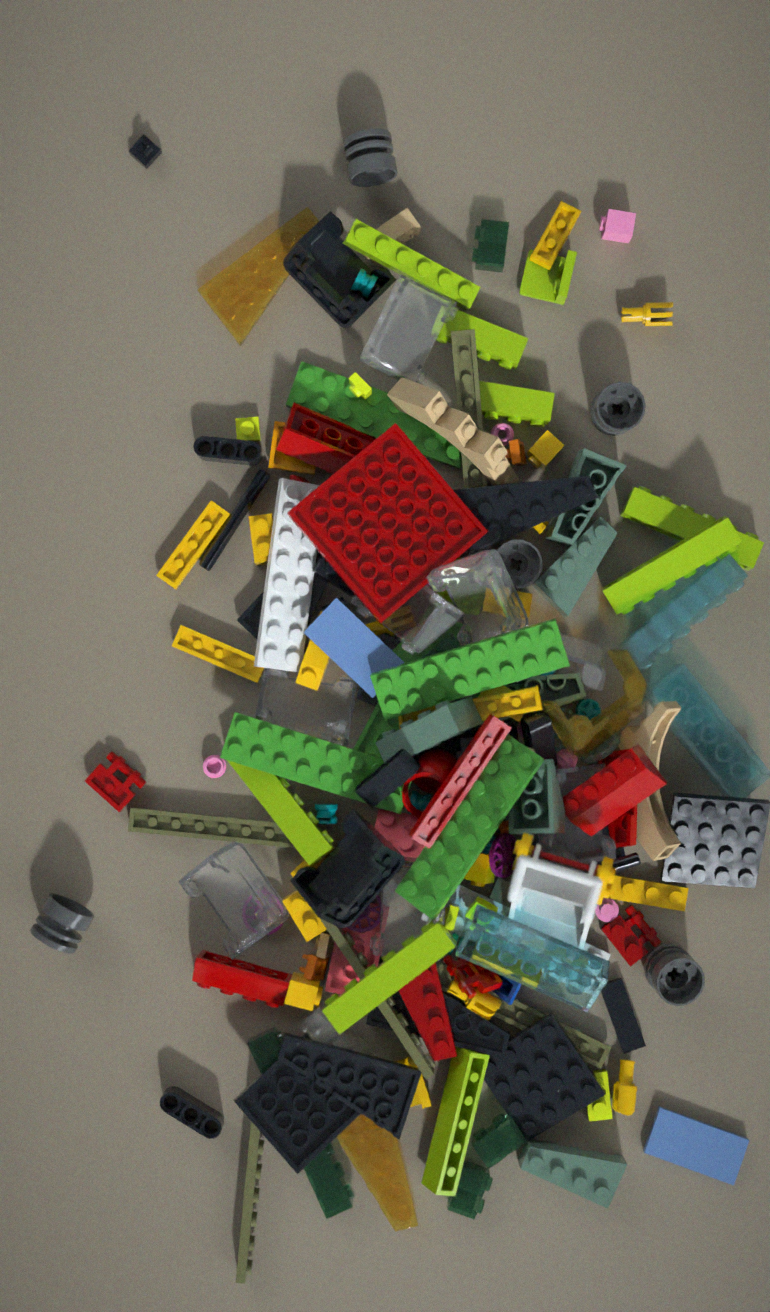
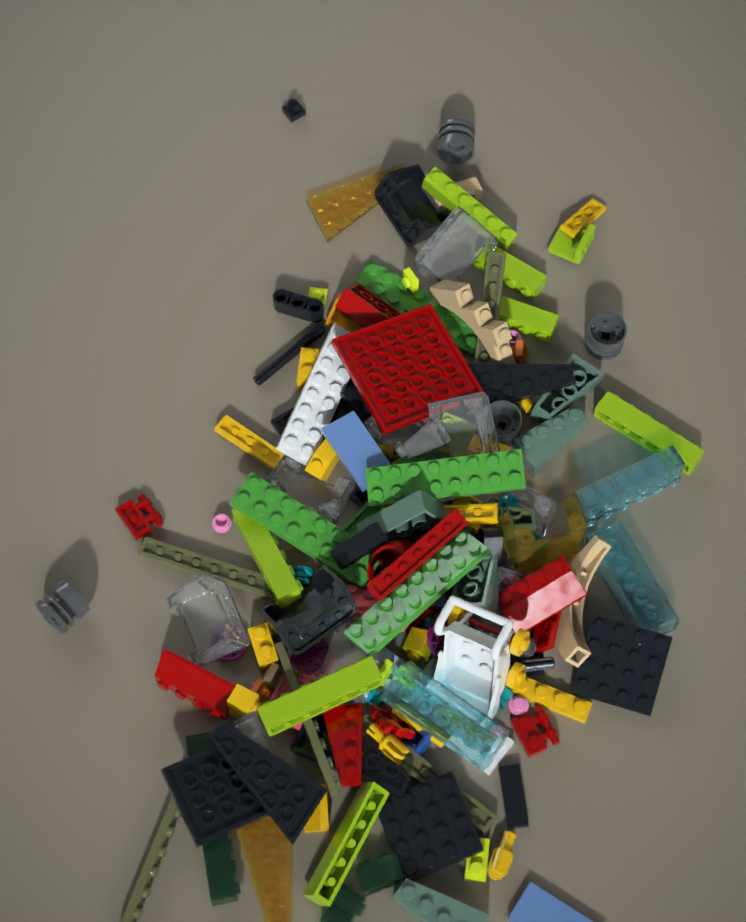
camera: 15 degrees right, 25 degrees down
(193, 545) = (252, 363): yellow plate -> none
(197, 1123) = (116, 778): black beam -> none
(364, 283) = (431, 216): teal wheel -> none
(491, 245) = (533, 214): clear green brick -> none
(544, 450) = (543, 353): yellow brick -> none
(617, 226) = (631, 221): bright pink brick -> none
(644, 314) = (644, 282): yellow arm -> none
(672, 564) = (625, 449): lime brick -> none
(674, 974) = (575, 758): dark grey wheel -> none

